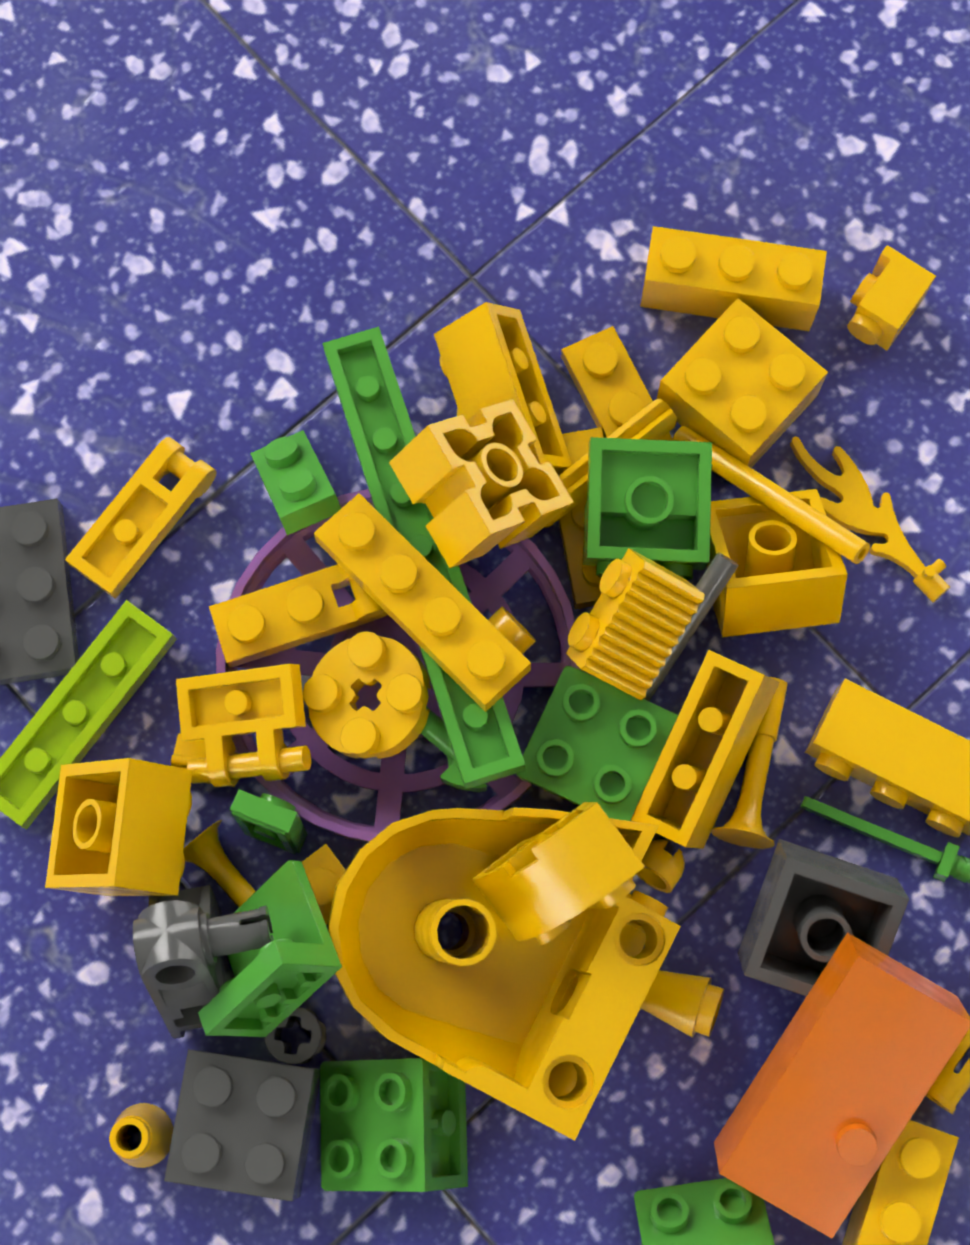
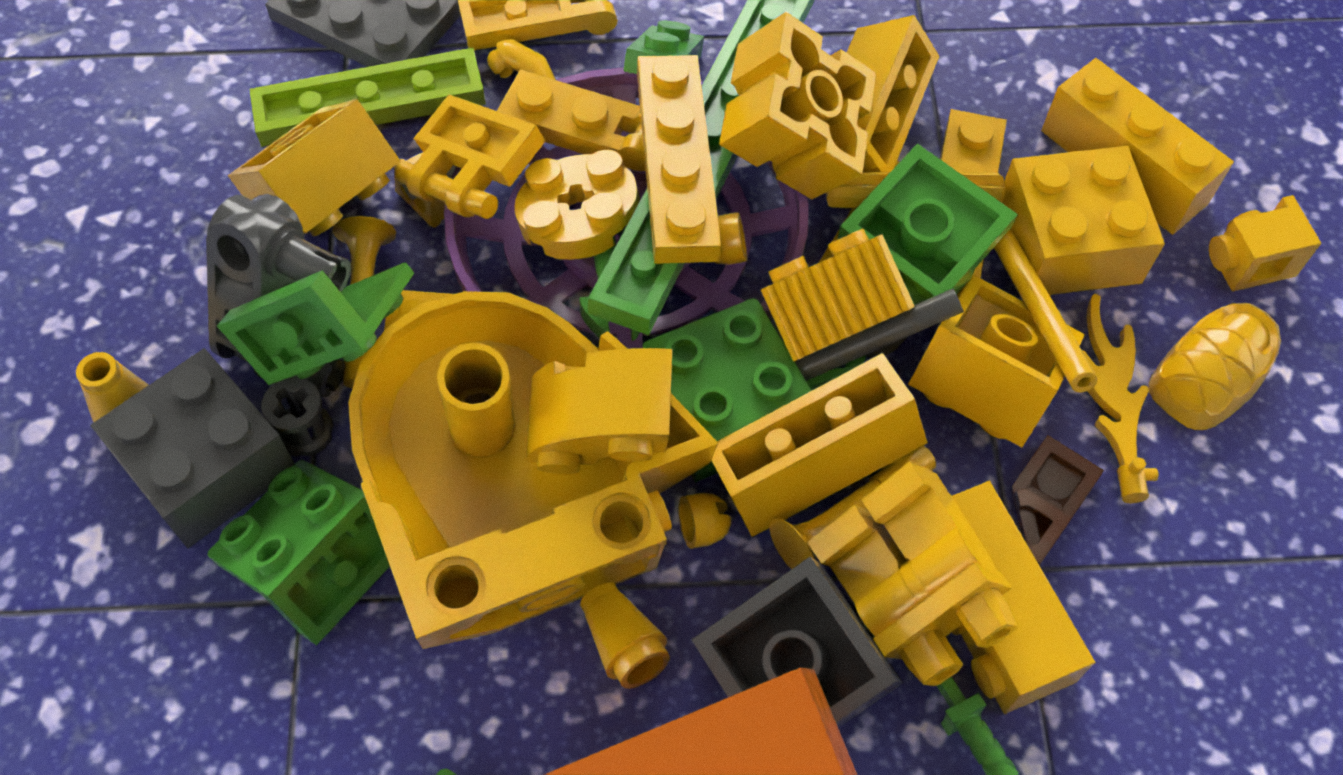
camera: 35 degrees right, 15 degrees down
(178, 573) = (515, 56): none -> yellow arm
(269, 820) = (423, 239): bright green plate -> none
(852, 796) = (916, 573): none -> yellow hips
(882, 643) = (1051, 493): none -> reddish brown slope
(922, 436) = (1216, 365): none -> yellow piece

